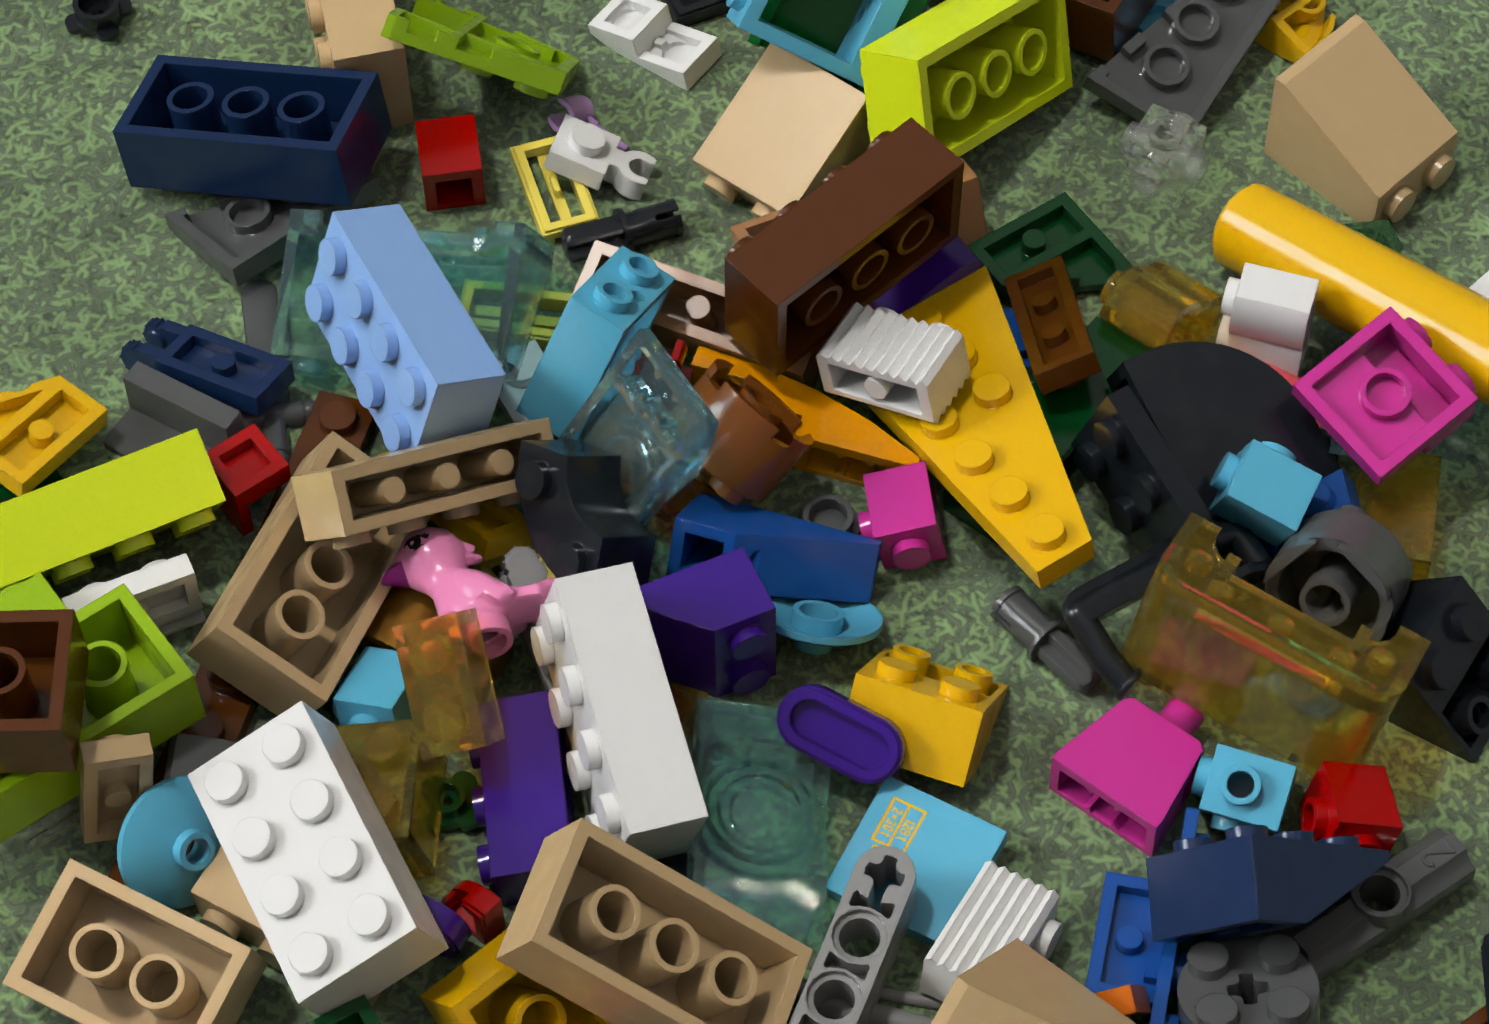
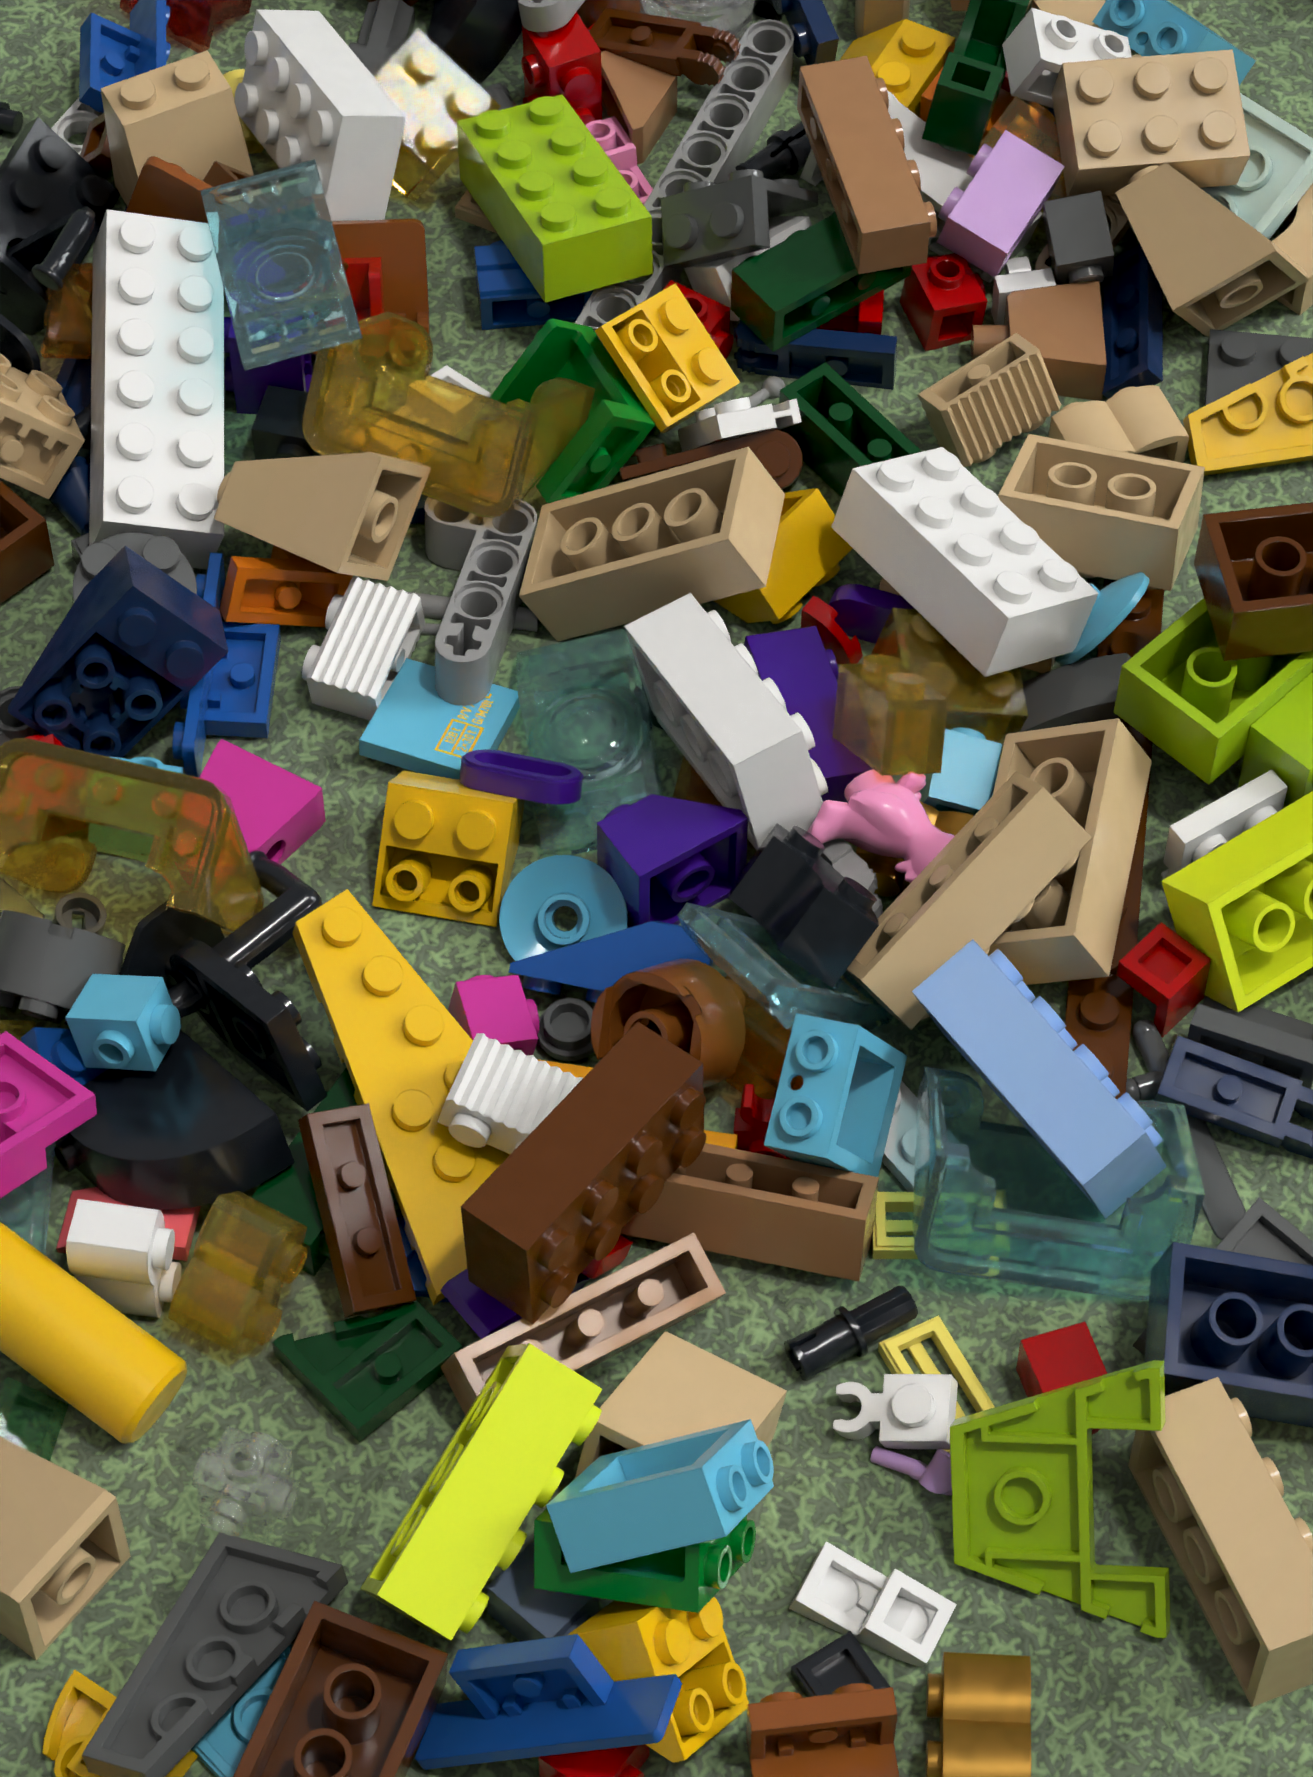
camera: 170 degrees right, 0 degrees up
(111, 780) = (1161, 601): tan plate -> none

